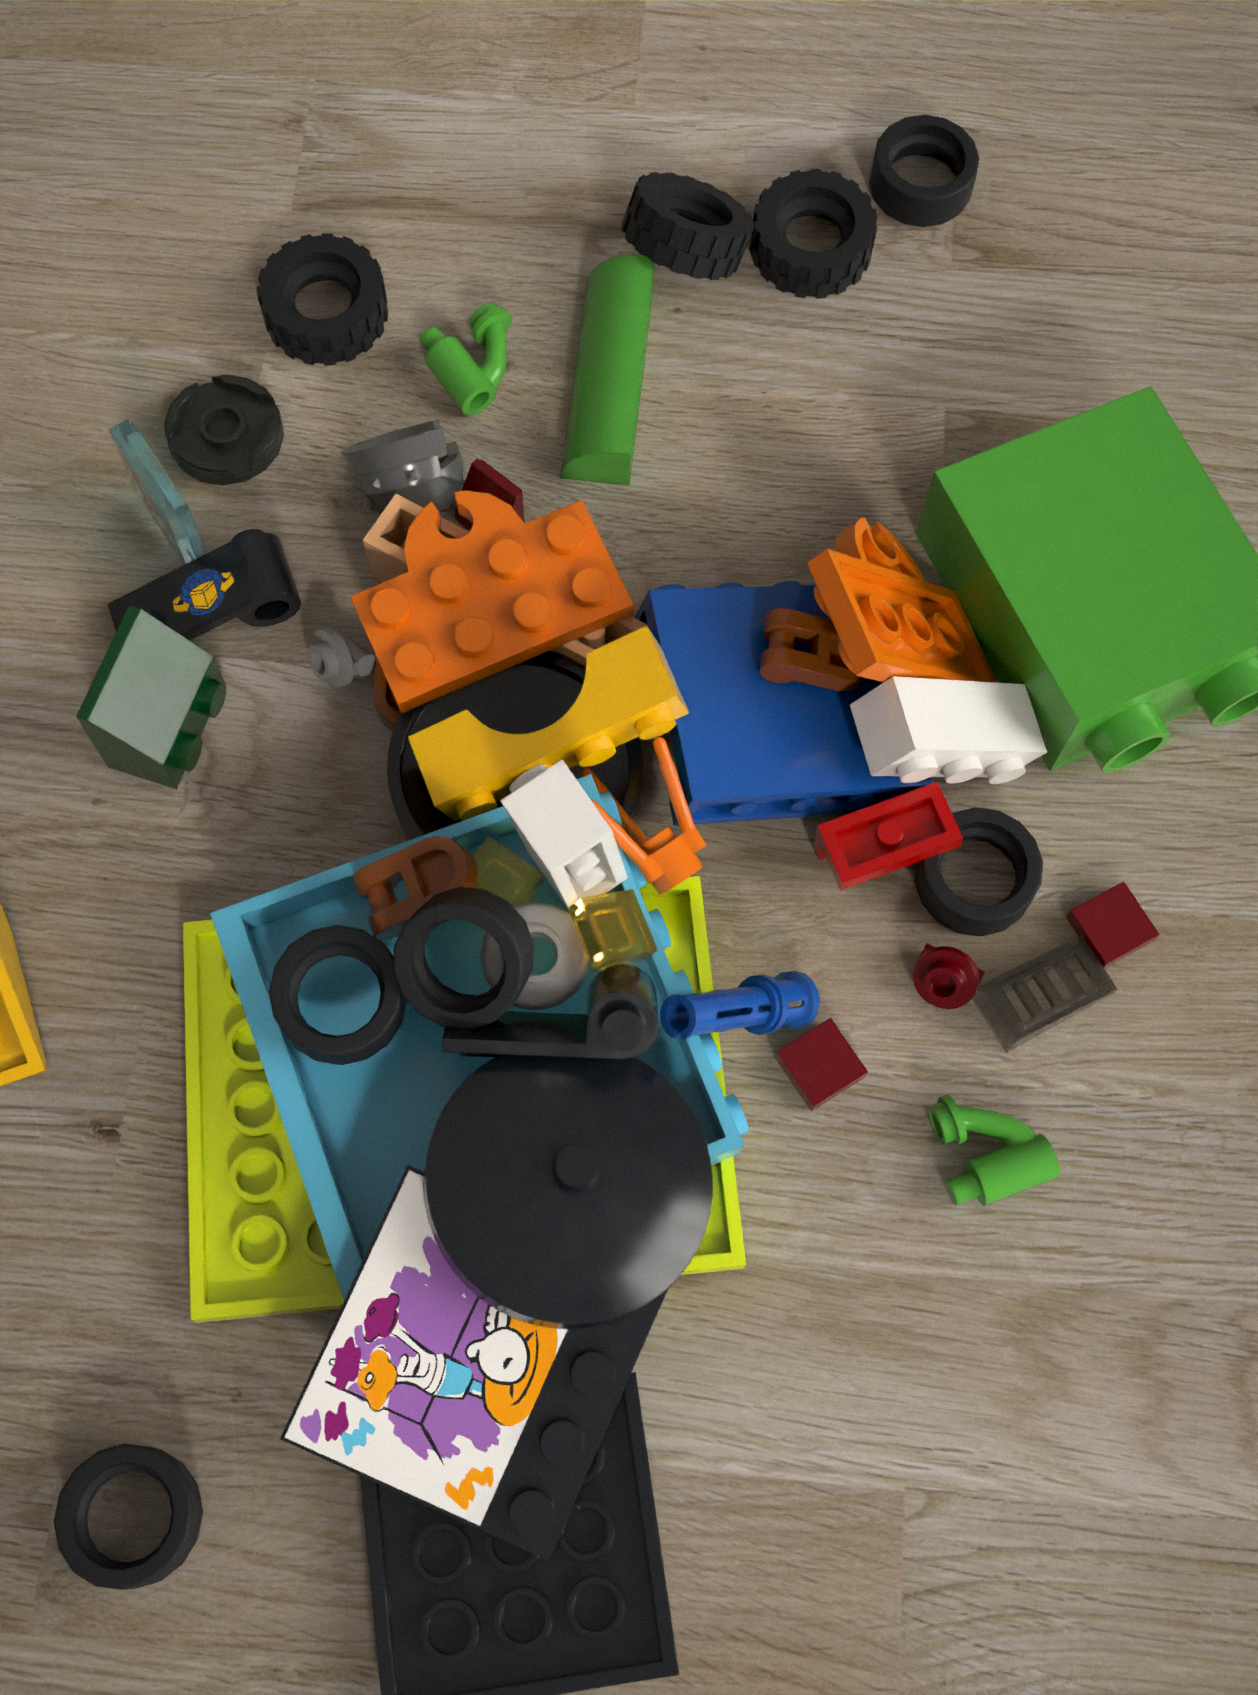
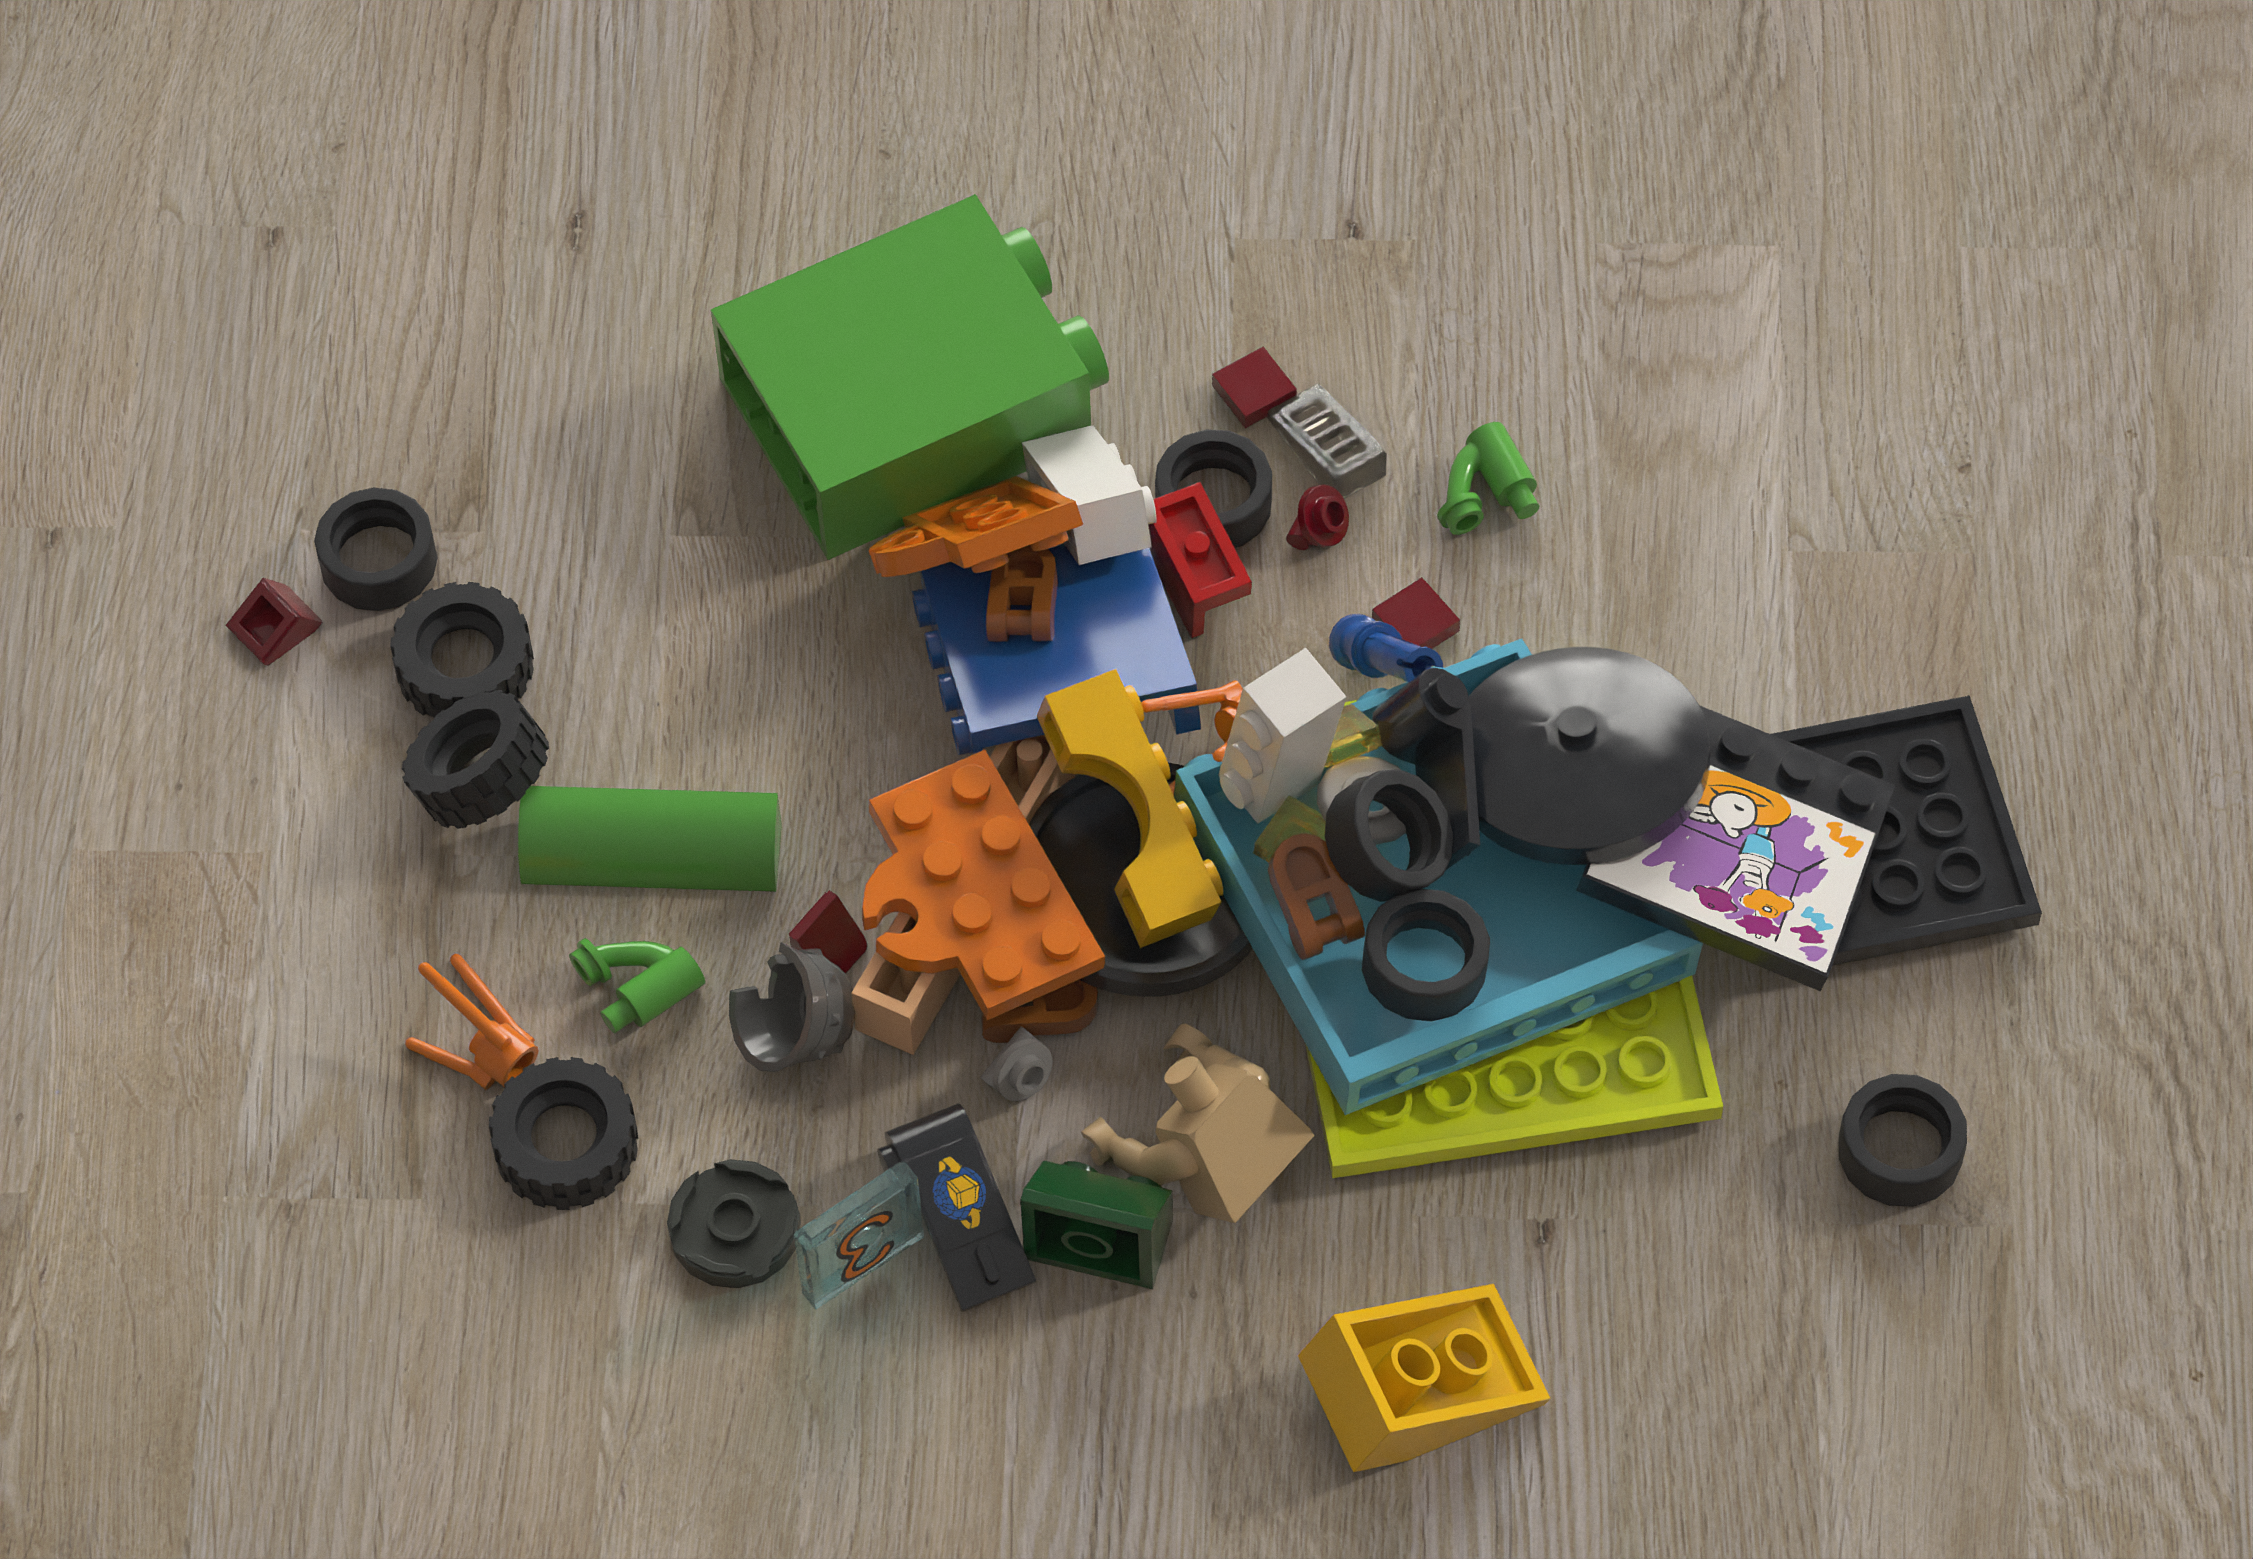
camera: 90 degrees left, 10 degrees down
(224, 821) = (1220, 1136): none -> tan torso
(410, 251) = (498, 1046): none -> orange plant
(860, 107) = (272, 621): none -> dark red slope

